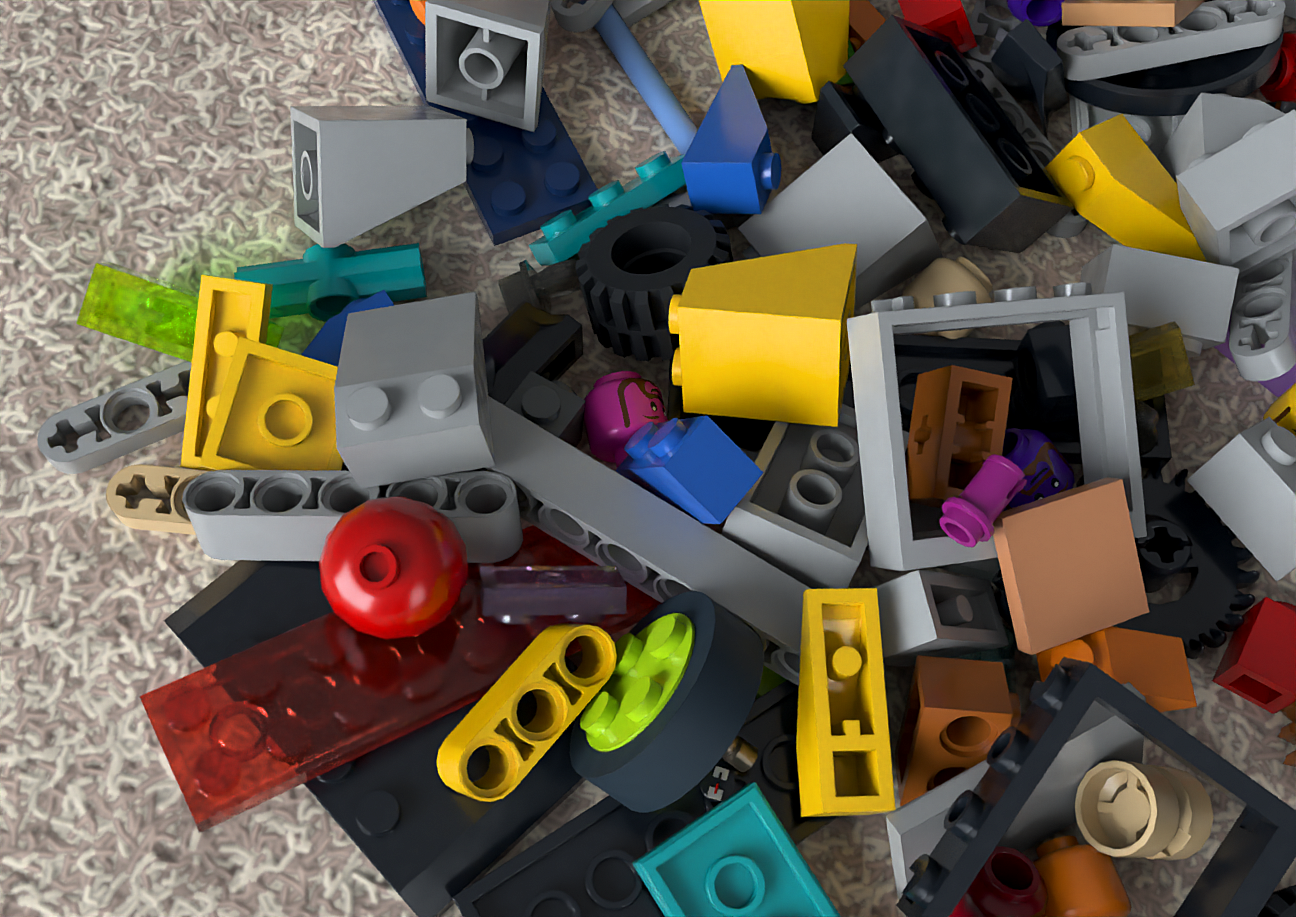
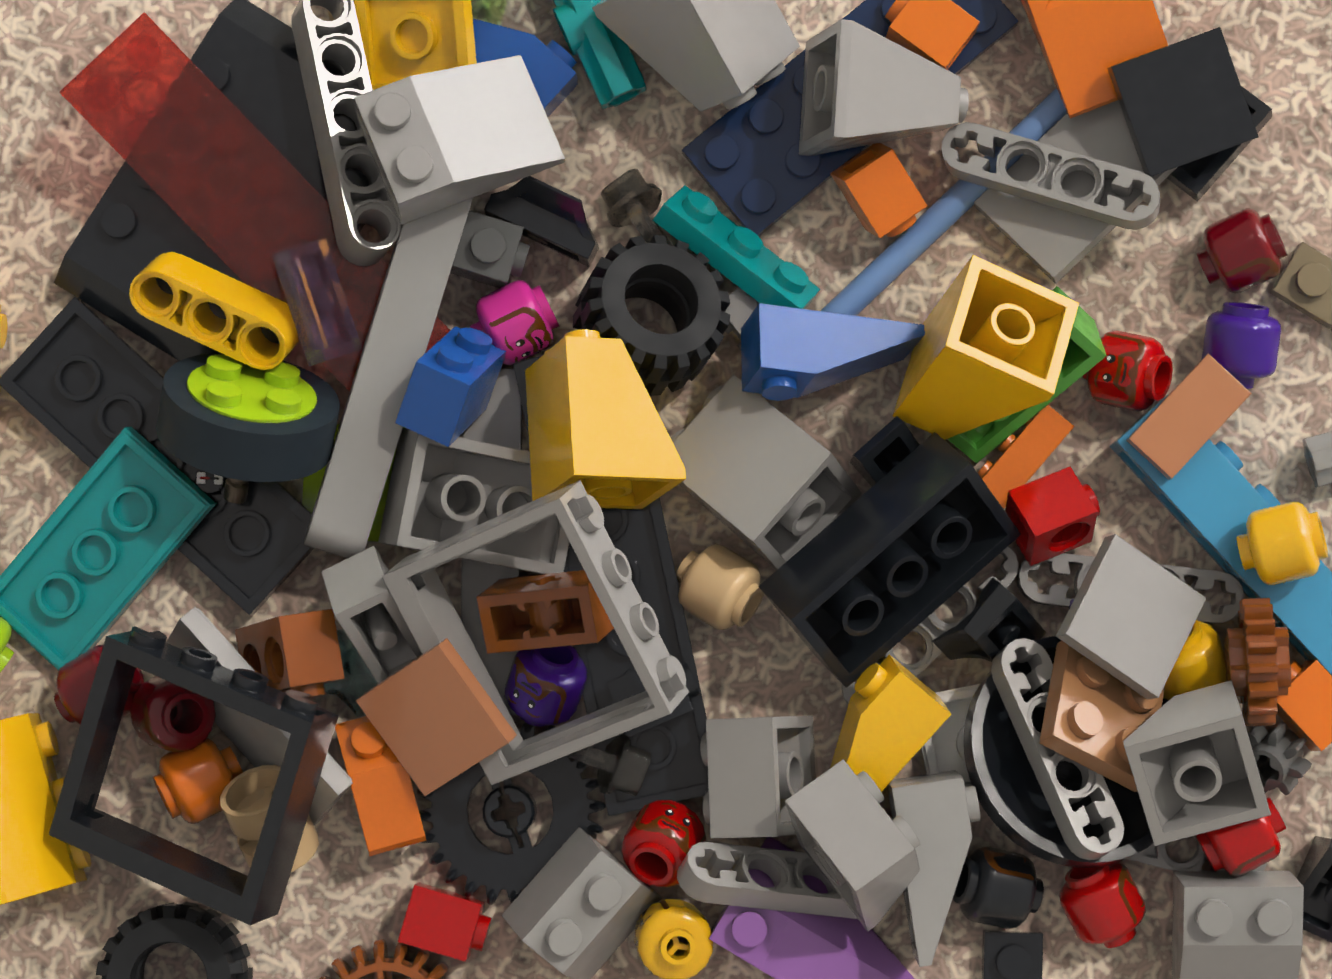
camera: 85 degrees right, 20 degrees up
(393, 567) = (289, 171): red cylinder -> none
(589, 76) = (879, 191): none -> orange brick
(842, 706) = (274, 556): yellow slope -> none
(981, 502) = (448, 626): magenta pin -> none
(1159, 362) = (680, 778): clear yellow tile -> none
(1211, 408) = (660, 841): none -> red head

